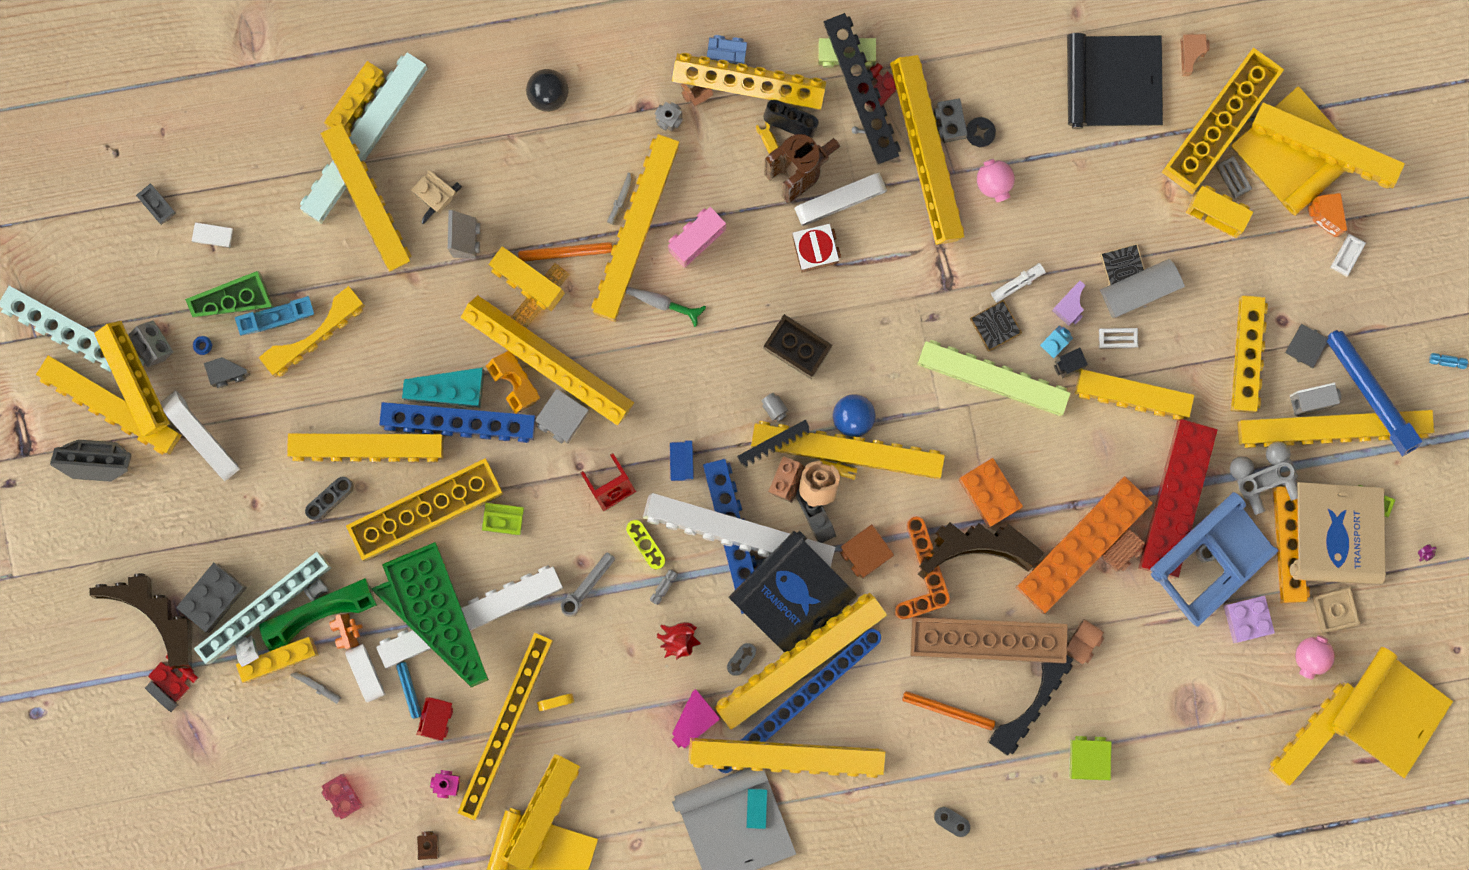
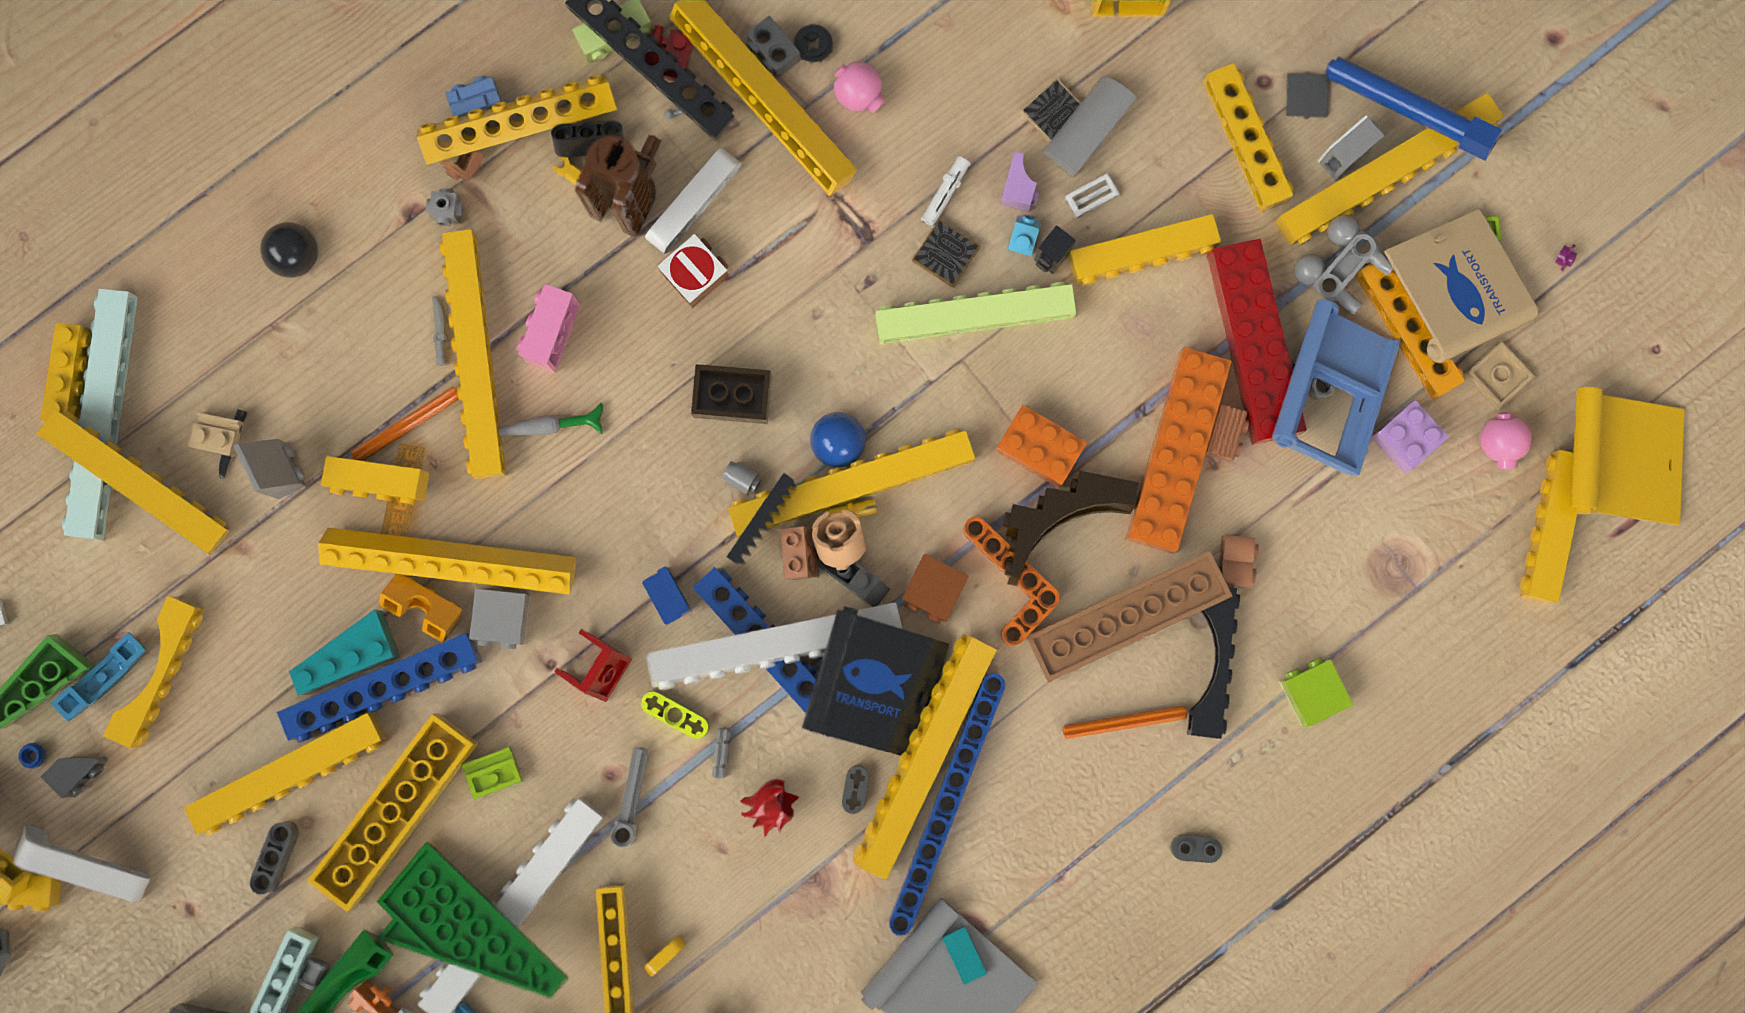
camera: 30 degrees left, 0 degrees up
(694, 720) = (838, 891): dark pink slope -> none
(786, 756) = (966, 877): yellow brick -> none
(1449, 361) = (1473, 30): dark azure axle -> none

